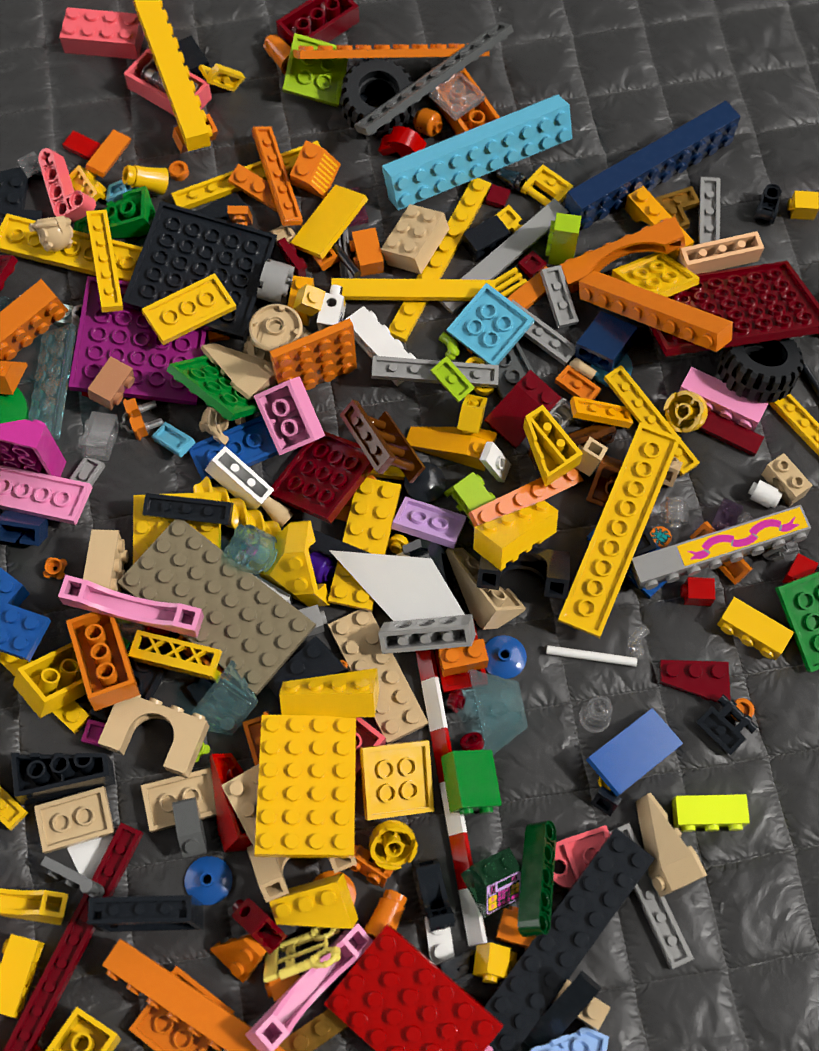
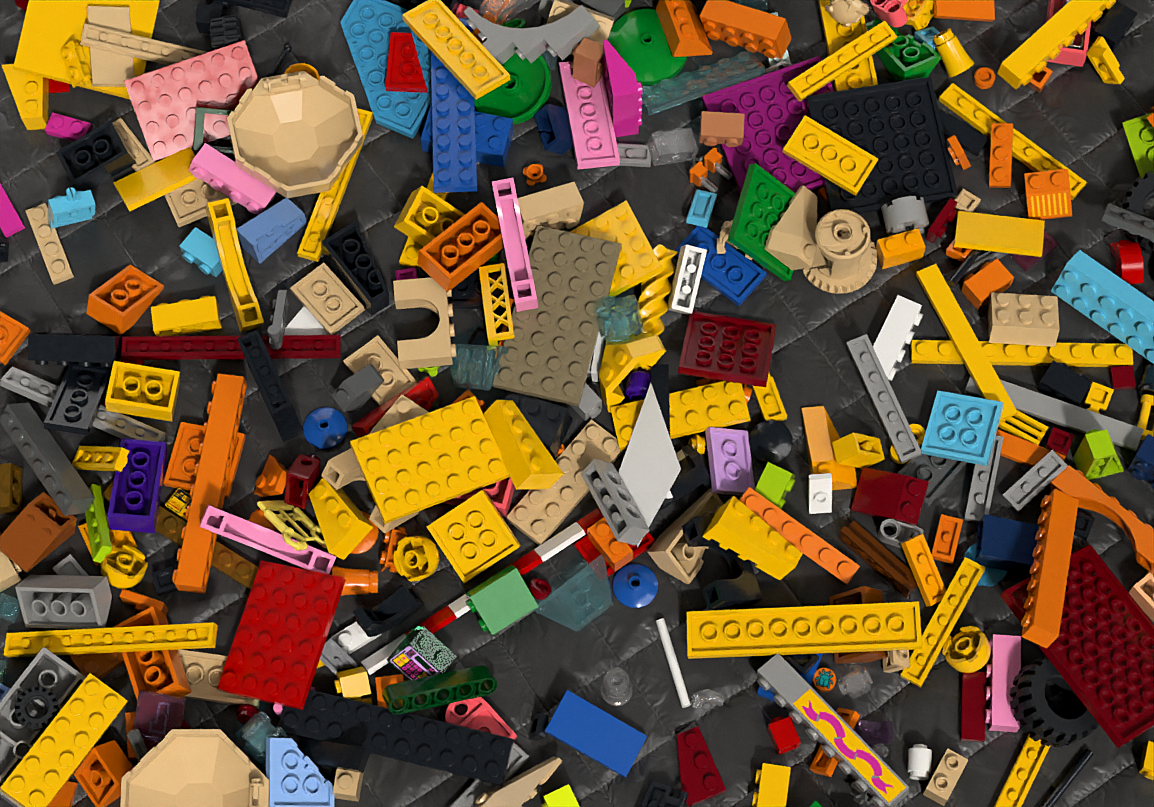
camera: 70 degrees right, 0 degrees up
(188, 509) = (630, 248): black plate -> none
(277, 176) = (1022, 163): orange tile -> none
(277, 511) = (676, 327): tan cone -> none
(289, 415) = (768, 291): bright pink brick -> none
(309, 300) = (893, 252): yellow brick -> none
(317, 356) = (833, 285): orange plate -> none
(332, 308) = (899, 279): white torso -> none
(382, 441) = (767, 374): reddish brown fence -> none
(452, 345) = (925, 407): lime arm -> none
(452, 379) = (879, 415): lime plate -> none
(456, 701) = (571, 559): dark red plate -> none
(550, 445) = (853, 531): yellow wedge -> none
(583, 368) = (967, 530): tan arm -> none
(592, 456) = (868, 574): tan brick -> none
(657, 274) = (1104, 562): yellow plate -> none

